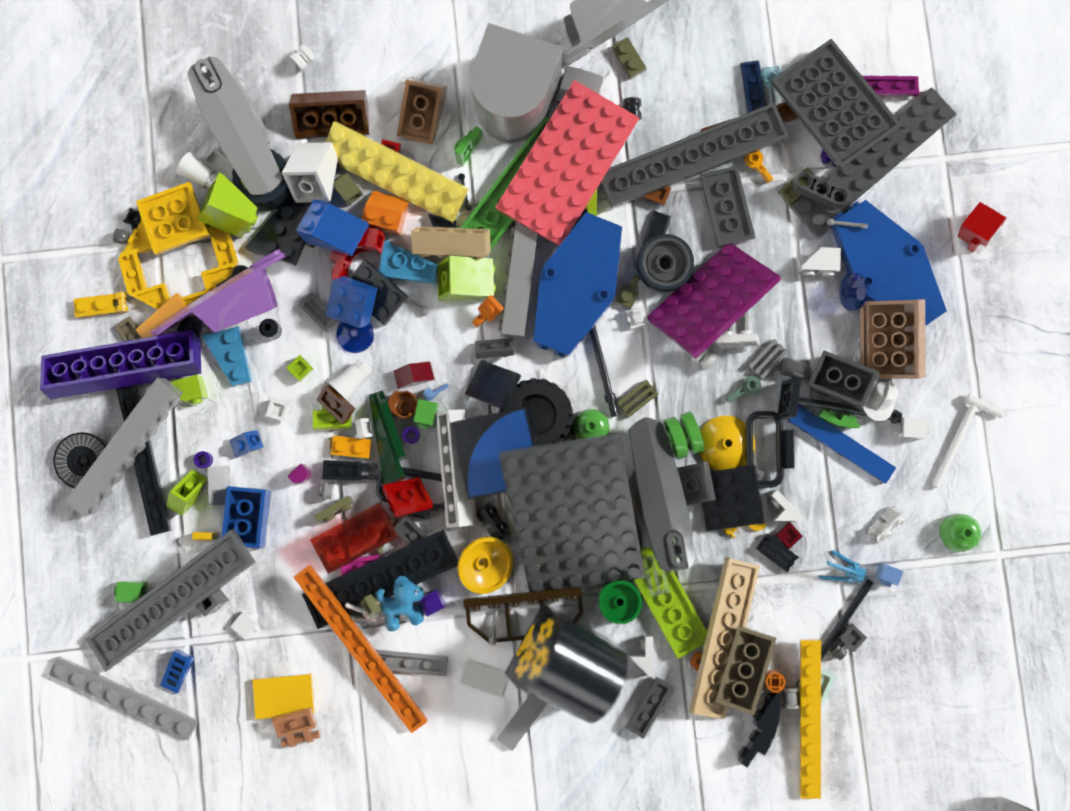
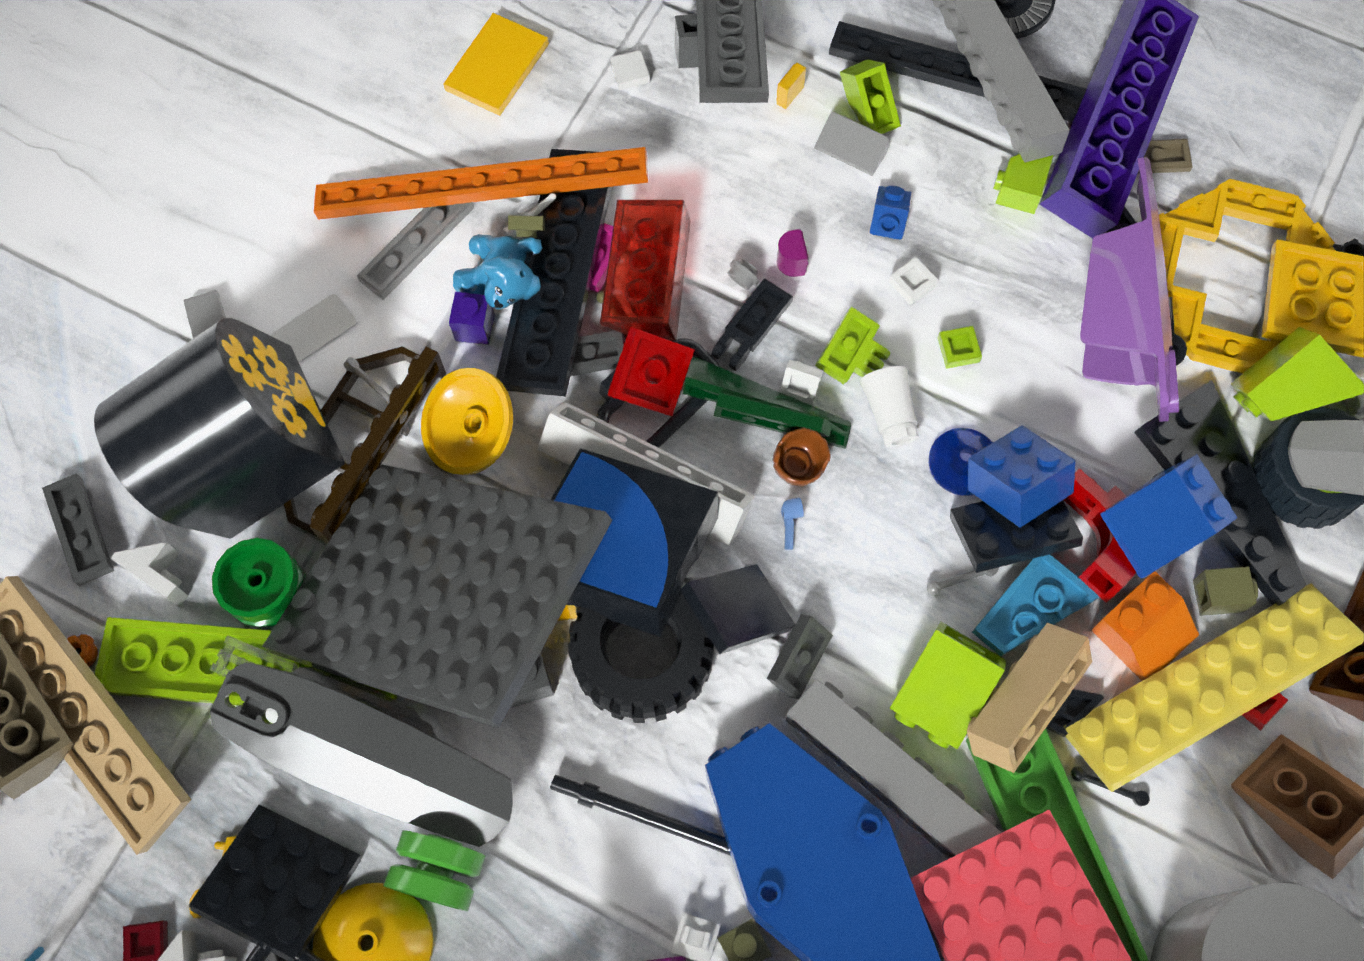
camera: 120 degrees right, 15 degrees down
(100, 305) = (1233, 139): yellow plate -> none
(120, 236) = (1333, 218): dark grey hinge -> none
(167, 310) = (1171, 213): light orange tile -> none
(197, 462) = (907, 137): dark purple bush -> none
(230, 354) = (1042, 266): dark azure wing -> none
(248, 514) = (780, 147): blue brick -> none
(274, 333) = (1049, 337): black brick -> none
(293, 723) = (441, 50): nougat plate -> none
(307, 301) = (1003, 422): light grey tile -> none
(311, 172) = (1290, 543): white slope -> none
(328, 514) = (706, 257): olive plate -> none
(335, 404) = (865, 357): reddish brown plate -> none
(351, 447) = (789, 343): light orange plate -> none
(407, 431) = (741, 433): dark purple bush -> none
(413, 374) = (838, 508): dark red slope -> none
(426, 413) = (764, 481): bright green brick -> none
(466, 146) = (1190, 829): bright green plate -> none
(488, 310) = (869, 686): orange plate -> none
(489, 514) = (538, 481): black hinge -> none
(590, 424) = (562, 728): bright green cylinder -> none
(650, 389) = (554, 808): olive tile -> none
(696, 483) = (344, 835): dark grey plate -> none
(790, 562) = (102, 911): black tile -> none

